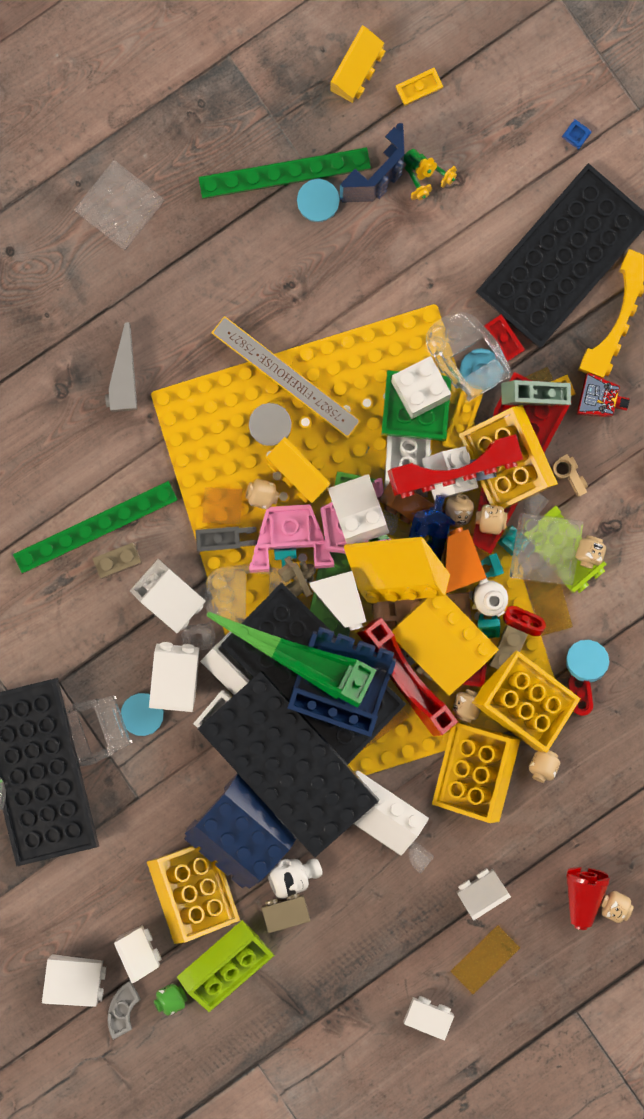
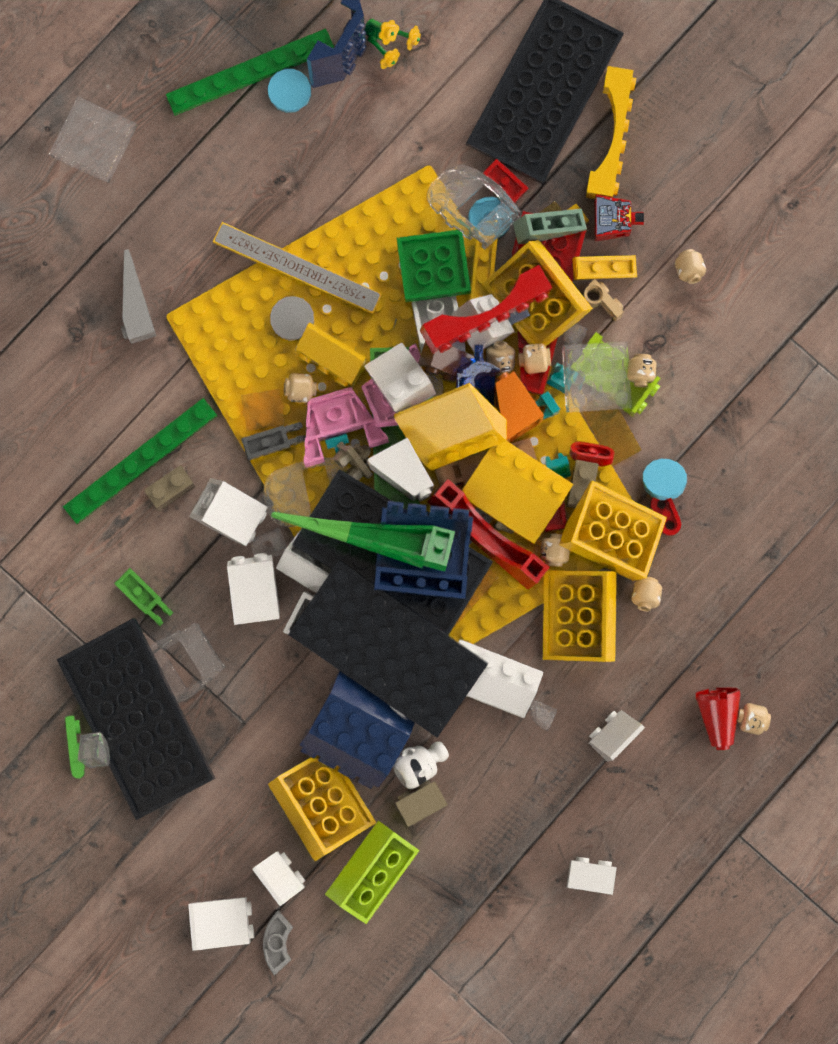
camera: 15 degrees left, 5 degrees down
(68, 656) = (141, 595): none -> bright green hinge
(139, 717) = (228, 639): medium azure tile -> none
(170, 999) = (323, 919): bright green head -> none
(421, 387) = (434, 245): white brick -> none
(485, 959) = (634, 804): clear yellow piece -> none
(490, 598) = (552, 437): white piece -> none
(579, 444) = (604, 267): none -> yellow tile

